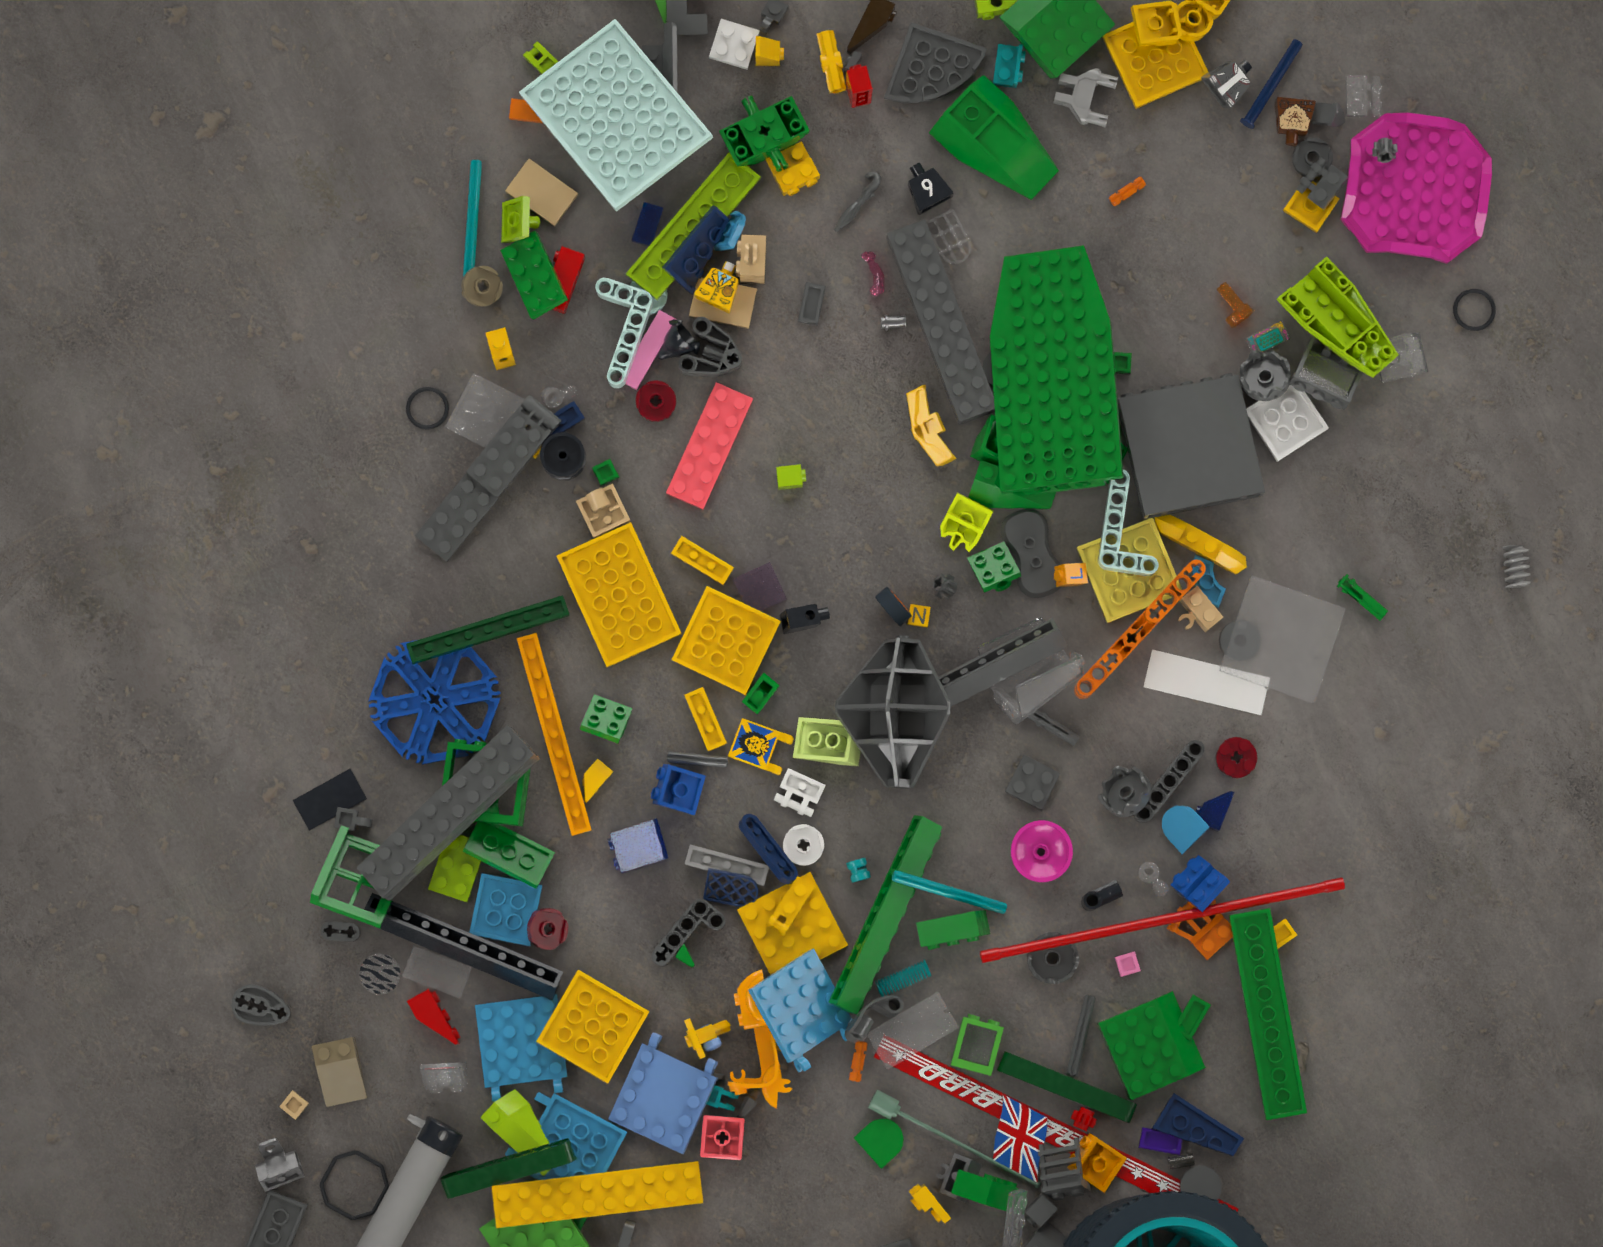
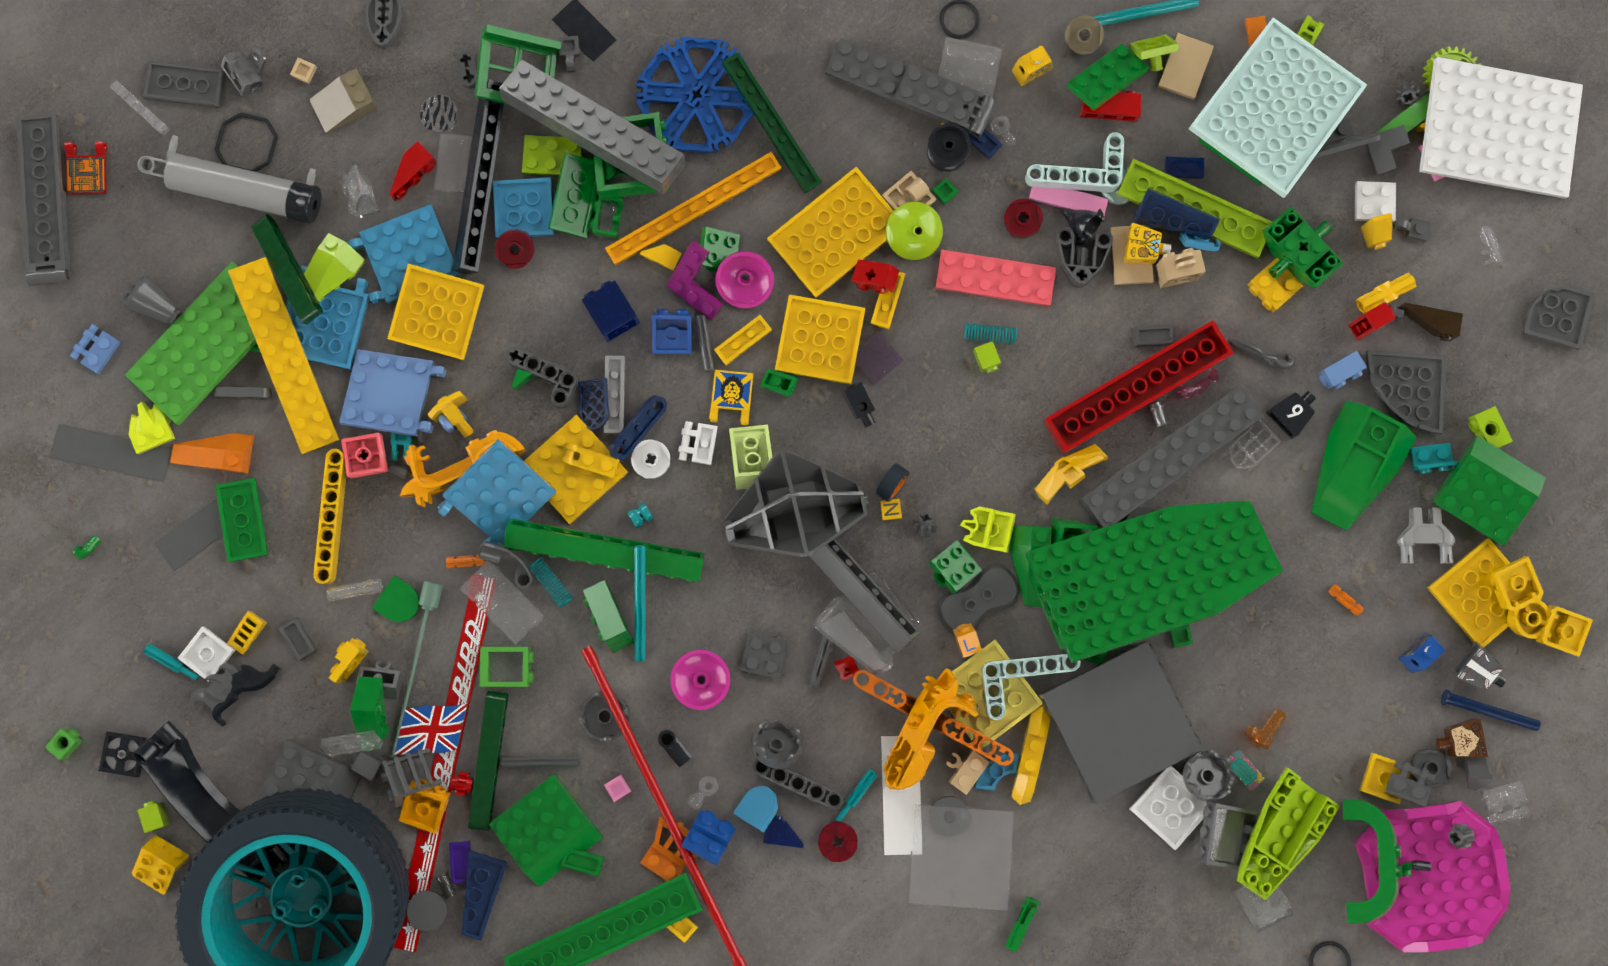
camera: 80 degrees right, 0 degrees up
(540, 825) = (607, 217): none -> green window
(631, 523) = (902, 226): none -> lime dish
(633, 764) = (684, 286): none -> magenta plate
(655, 701) = (744, 291): none -> dark pink dish
(681, 556) = (875, 276): none -> red brick
(763, 455) = (1004, 329): none -> teal piece
(765, 1189) = (333, 526): none -> yellow beam
(857, 1183) = (354, 589): none -> clear piece
(861, 335) = (1138, 387): none -> red brick
(897, 127) = (1340, 371): none -> medium blue brick
(1066, 702) = (846, 667): none -> red tile
(1165, 657) = (912, 751): none -> light orange piece
(1193, 724) = (857, 793): none -> teal axle
(1198, 133) = (1423, 651): none -> blue torso
(1388, 226) = (1388, 857): none -> green arch
(1402, 199) = (1415, 865): none -> arm

